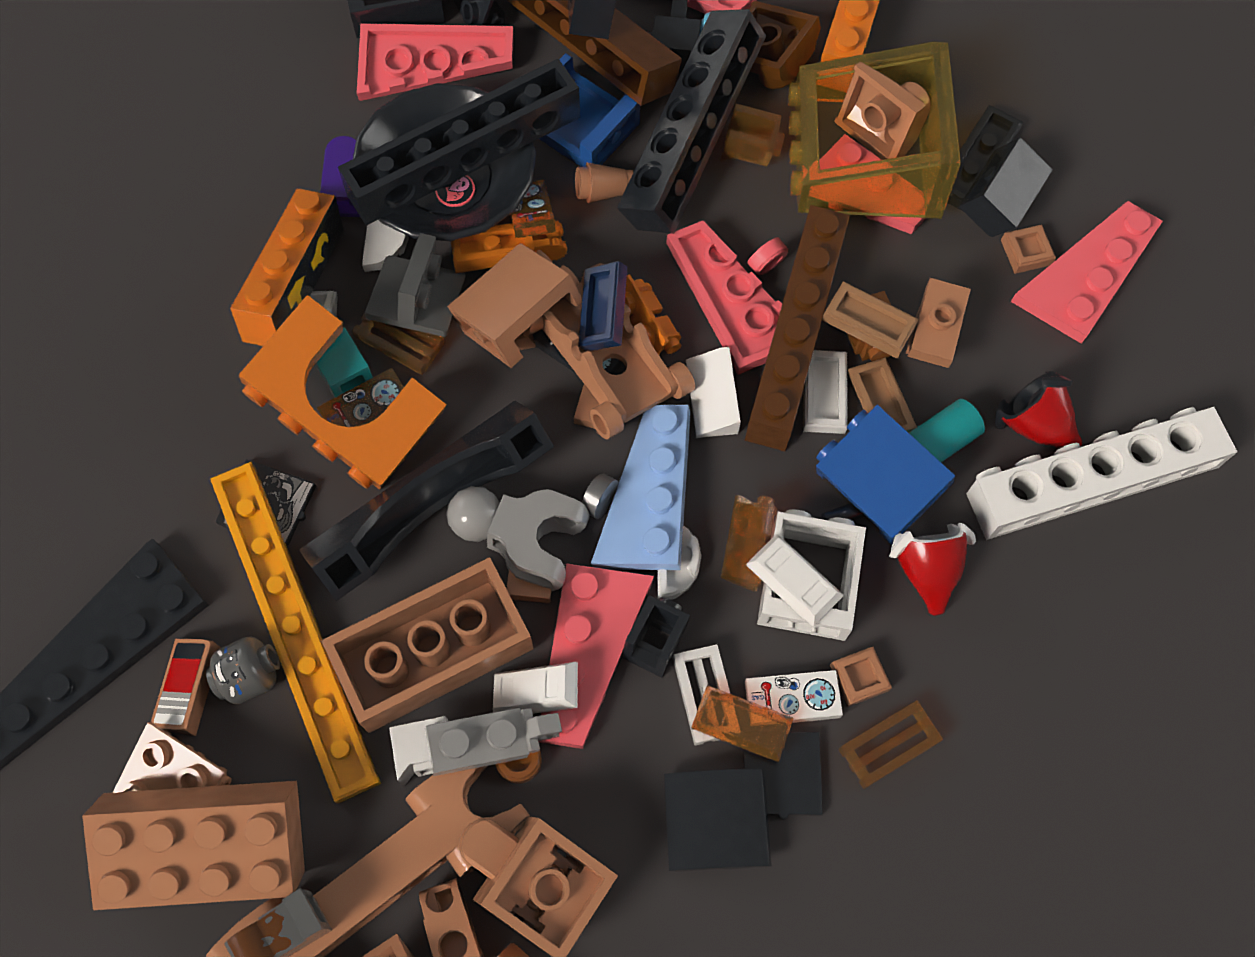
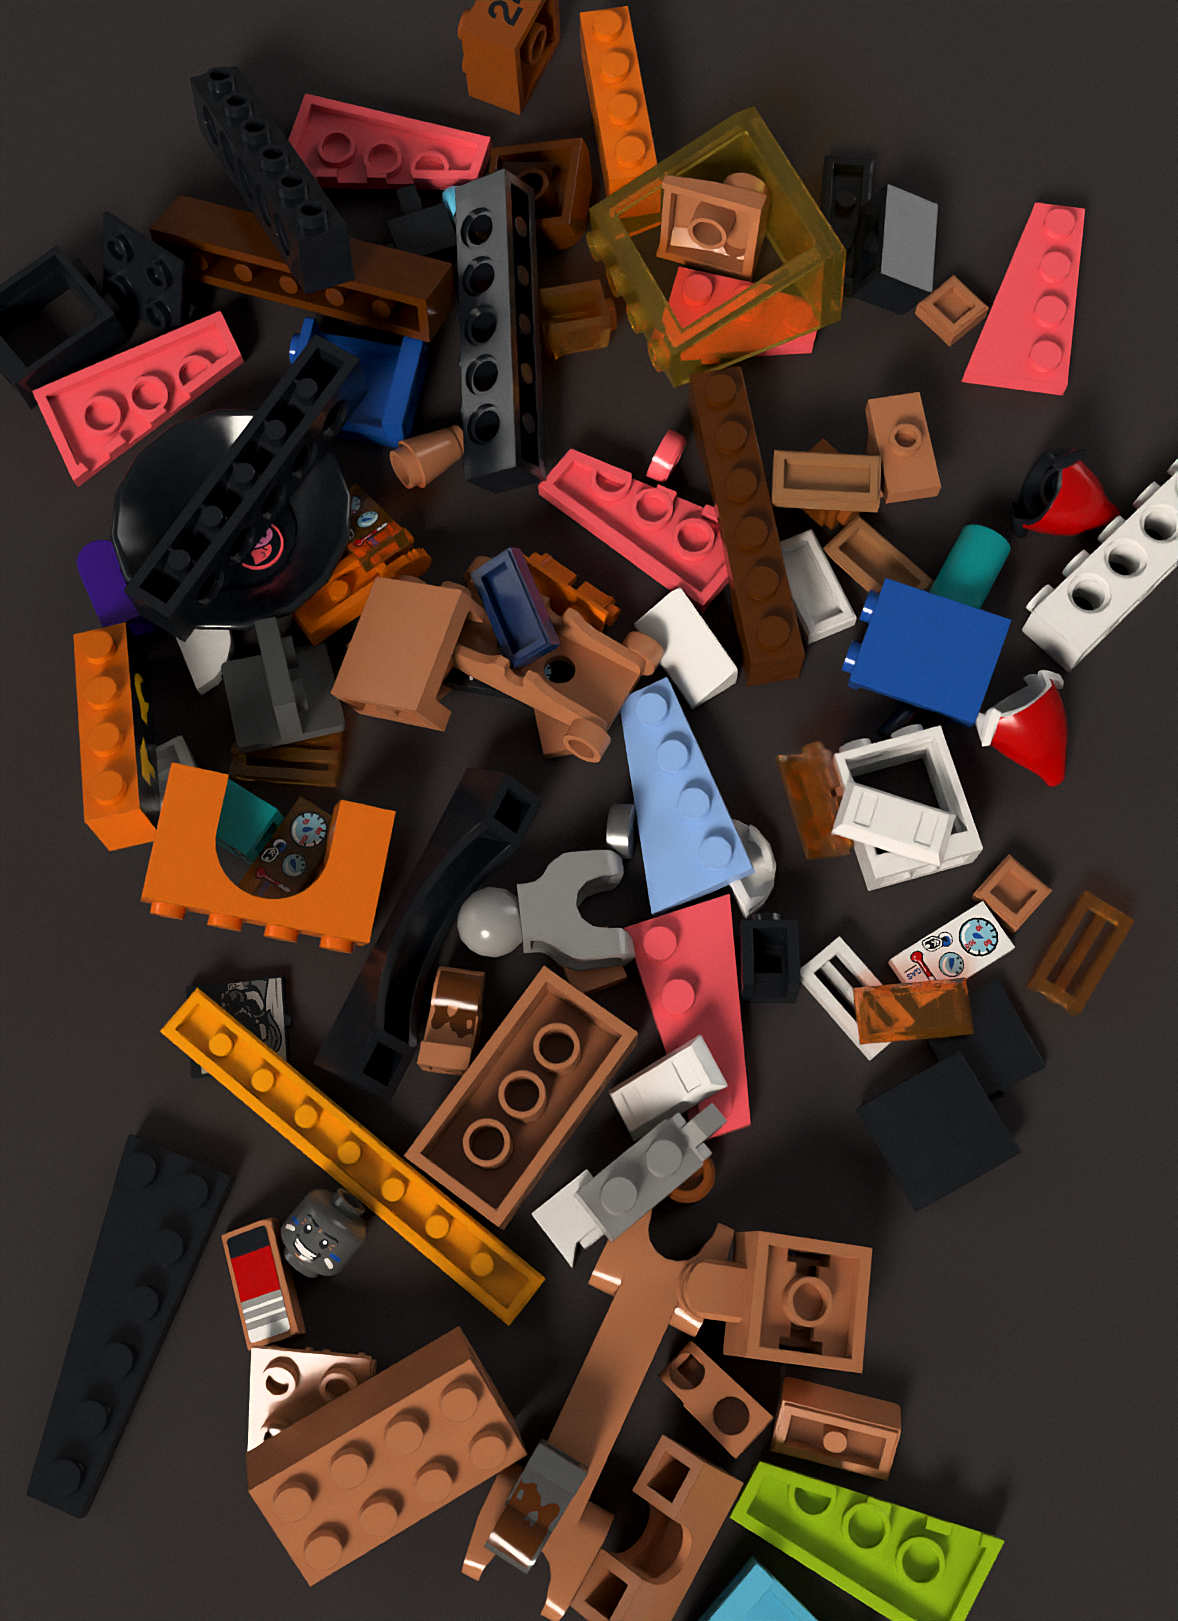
camera: 20 degrees left, 5 degrees up
(412, 568) = (453, 1021): none -> leg

